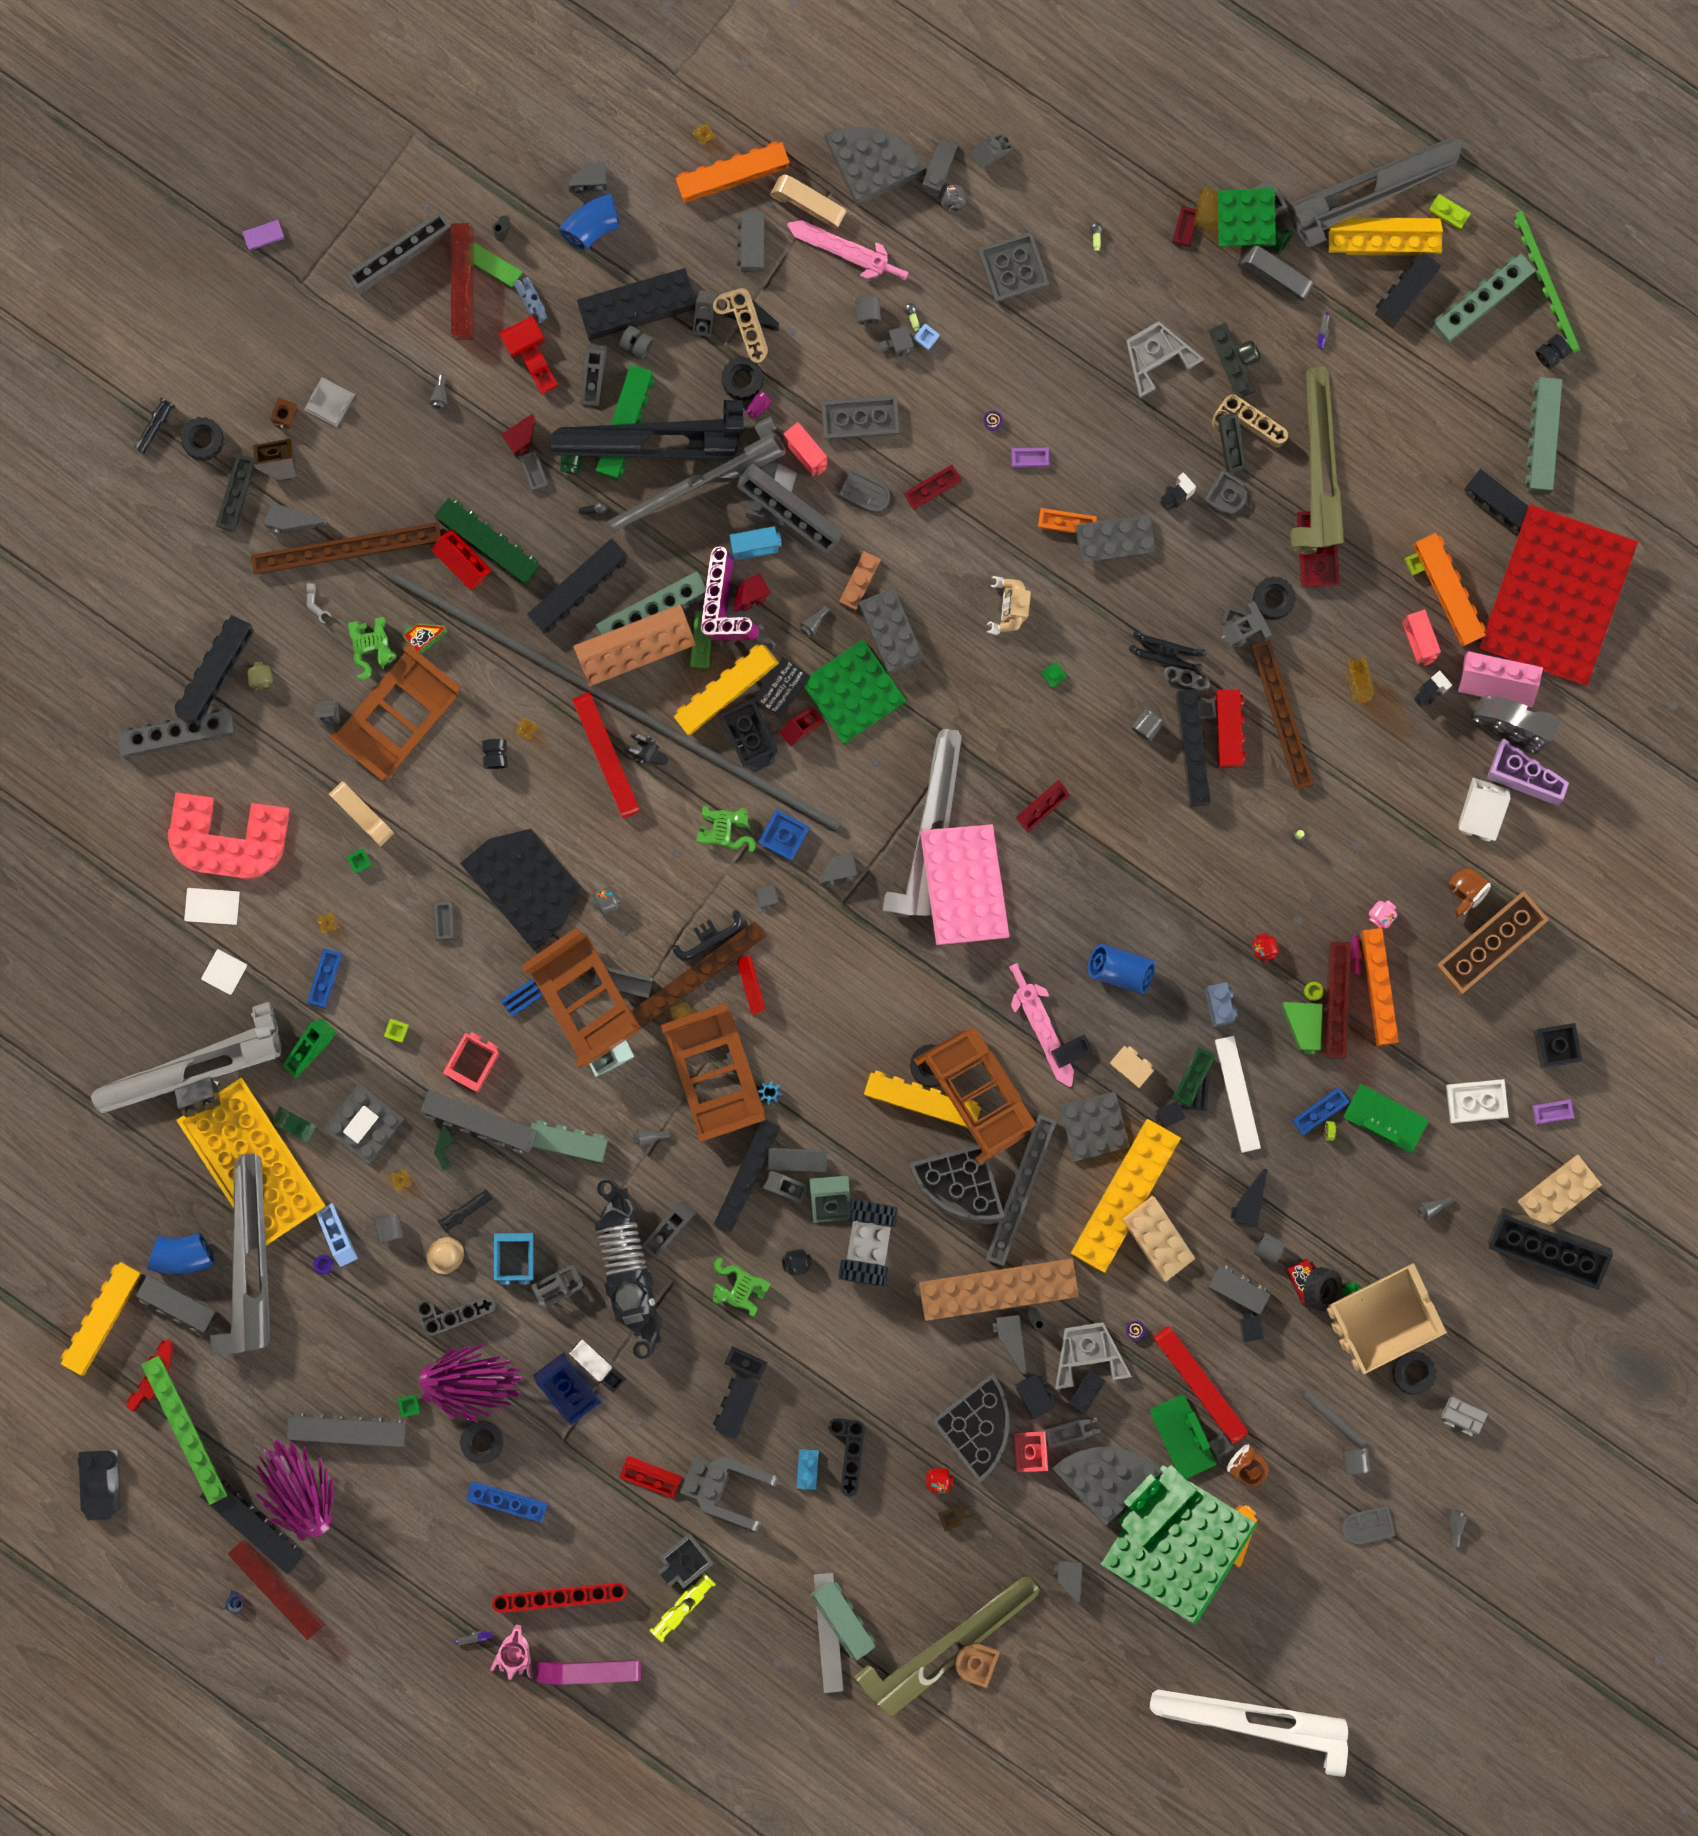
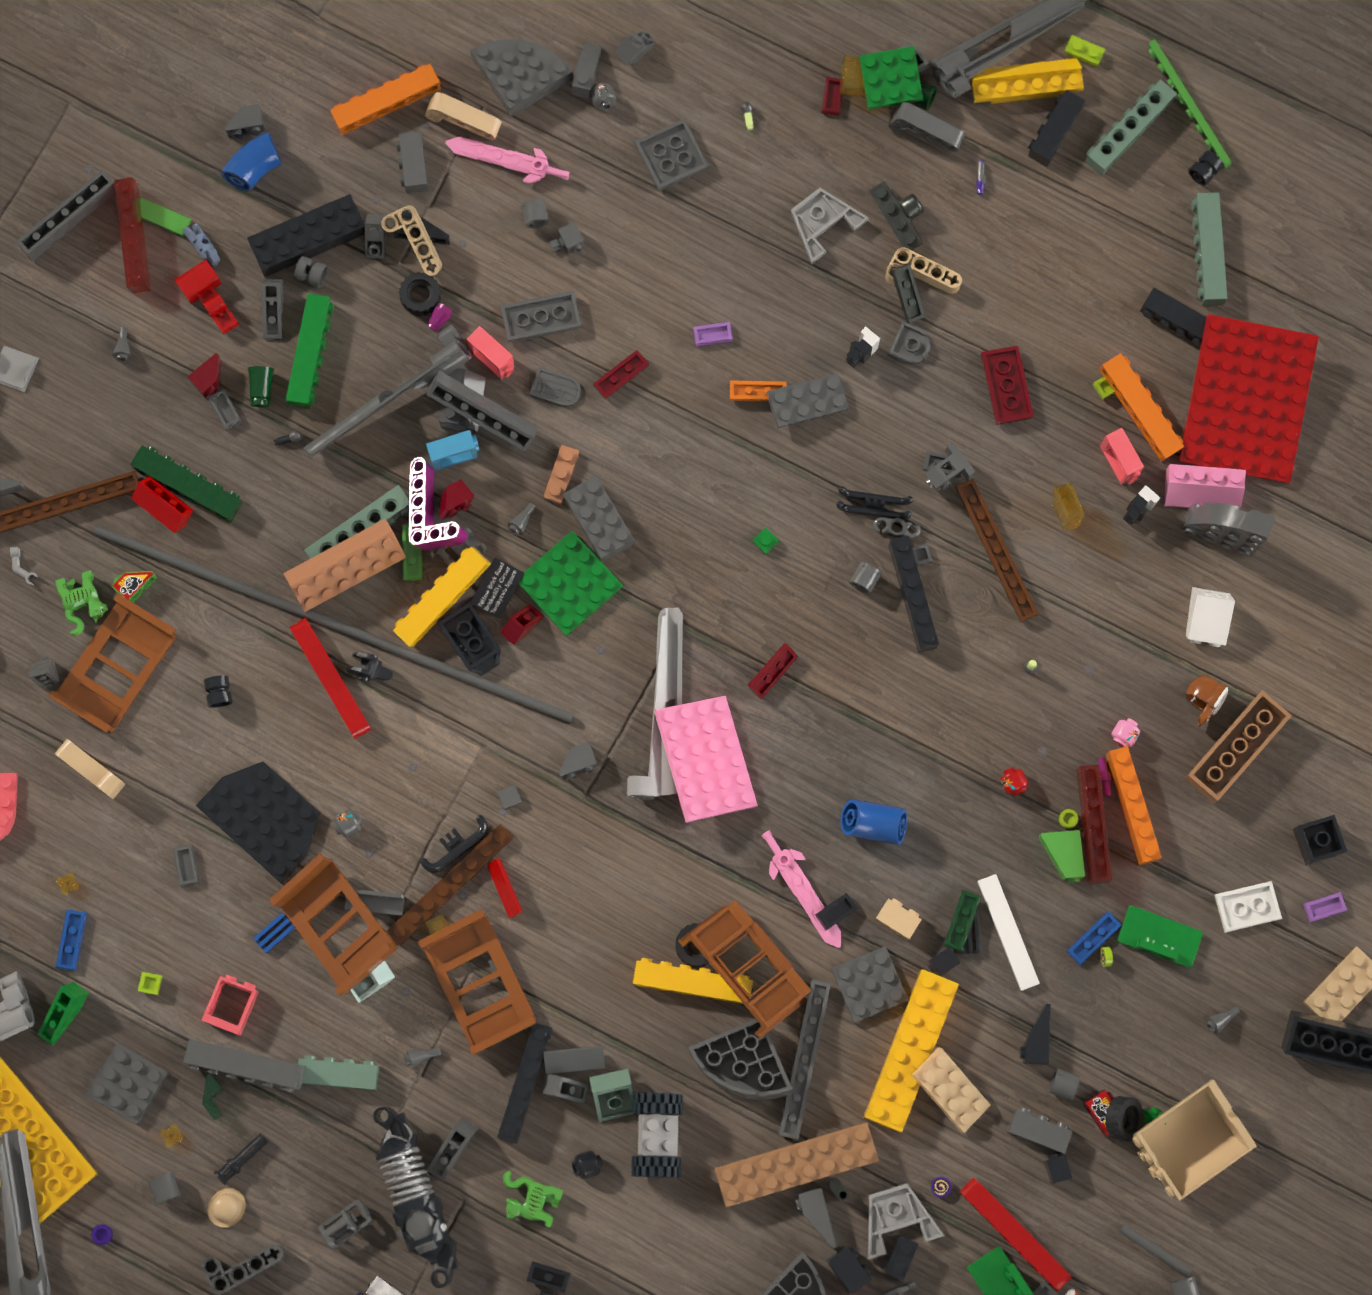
camera: 10 degrees left, 5 degrees down
(293, 1124) = (55, 1093): clear green slope -> none
(336, 1235) = (111, 1203): light blue slope -> none
(359, 861) = (93, 816): green plate -> none
(360, 1124) = (123, 1084): white sticker -> none
(504, 225) = (165, 180): pearl dark grey piece -> none
(514, 1237) = (296, 1179): dark azure window -> none
(521, 729) = (248, 667): clear yellow plate -> none
(577, 586) = (281, 515): black brick -> none
(705, 128) = (353, 62): clear yellow plate -> none
(707, 437) = (392, 355): black panel -> none
(722, 827) = (455, 735): bright green animal -> none
(769, 1098) = (537, 1000): dark azure gear -> none
(783, 835) = (518, 734): blue plate -> none
(910, 309) = (576, 208): piece -> none
(926, 337) = (595, 231): light blue plate -> none
(993, 420) = (671, 303): tile -> none
(1014, 607) = (717, 478): tan torso -> none
(1220, 1004) = (978, 844): sand blue brick -> none
(1229, 728) = (946, 570): red brick -> none
(1288, 597) = (978, 425): black tyre -> none
(1325, 510) = (1010, 346): olive panel -> none
(1428, 1368) = (1240, 1202): black tyre -> none
(1464, 1416) = (1285, 1228): light grey brick -> none
(1526, 775) = (1245, 577): lavender wedge -> none

